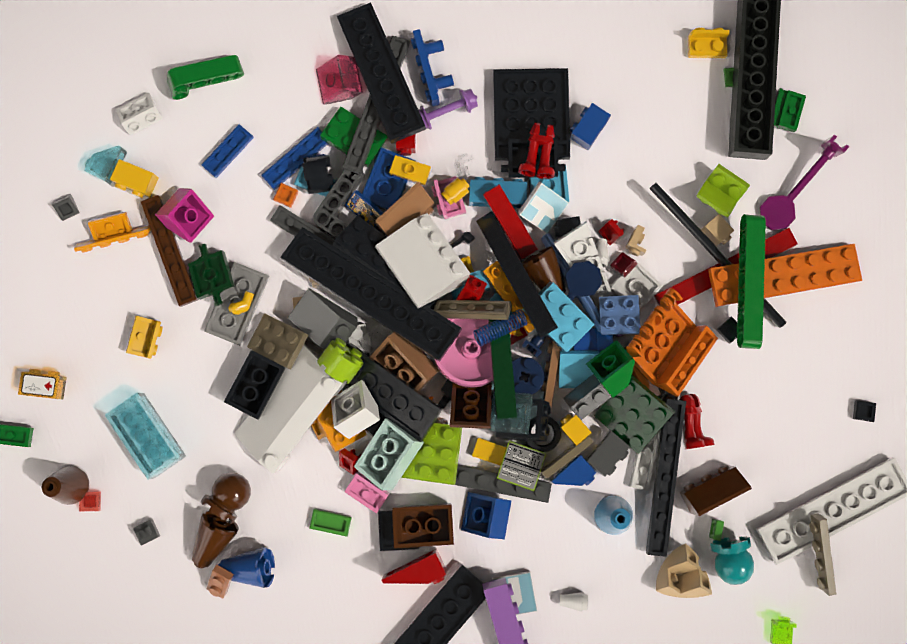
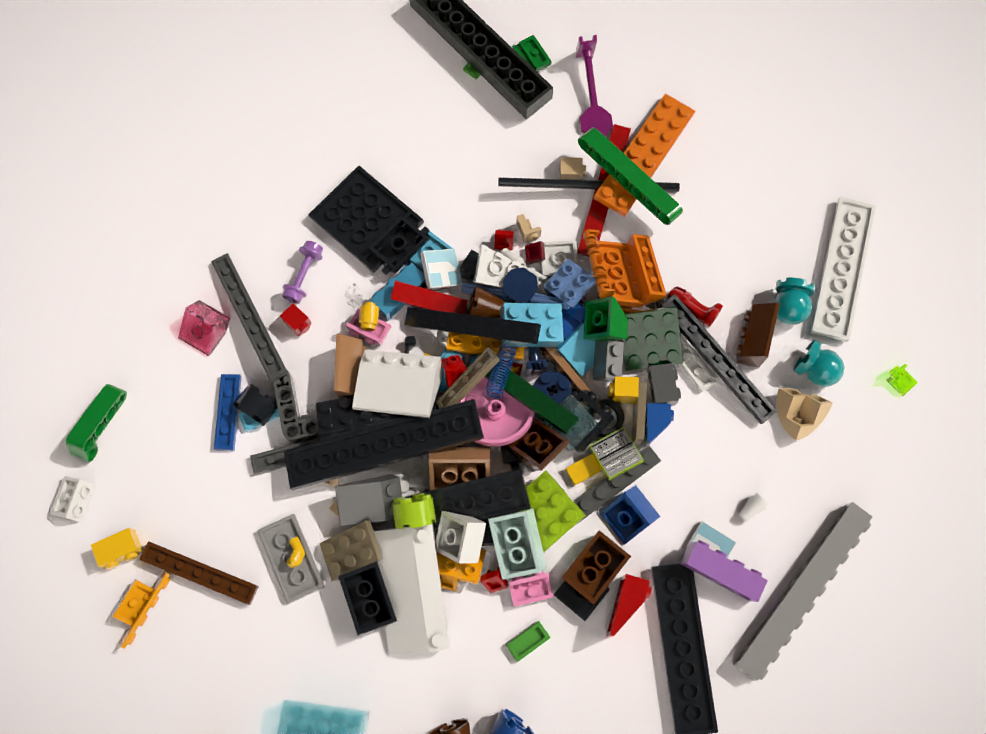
camera: 50 degrees left, 10 degrees down
(66, 207) = (82, 625): dark grey slope -> none
(104, 162) = (81, 561): clear light blue slope -> none
(143, 337) = (245, 656): yellow bracket -> none
(185, 214) = (184, 533): dark pink slope -> none
(210, 274) = (249, 556): dark green plate -> none
(227, 151) = (169, 458): blue tile -> none
(229, 494) = (433, 700): reddish brown tile -> none
(286, 195) = (247, 445): orange tile -> none
(341, 132) = (243, 360): green plate -> none
(364, 208) = (310, 395): tile -> none
(381, 73) = (230, 291): black plate -> none
(381, 186) = (310, 360): blue tile -> none
(410, 170) = (320, 336): yellow plate -> none
(424, 50) = (265, 263): blue plate -> none
(544, 170) = (388, 228): red piece -> none
(590, 126) = (415, 187): blue brick -> none
(608, 511) = (713, 421): dark azure cone -> none
(708, 43) = (435, 63): yellow bracket -> none
(716, 529) = (787, 358): bright green tile -> none
(722, 190) = (546, 141): lime bracket -> none
(728, 330) = (649, 224): black plate -> none
(767, 496) = (794, 300): none -> teal tile
(823, 559) = (869, 301): dark tan plate -> none
(864, 411) = (789, 188): black tile -> none

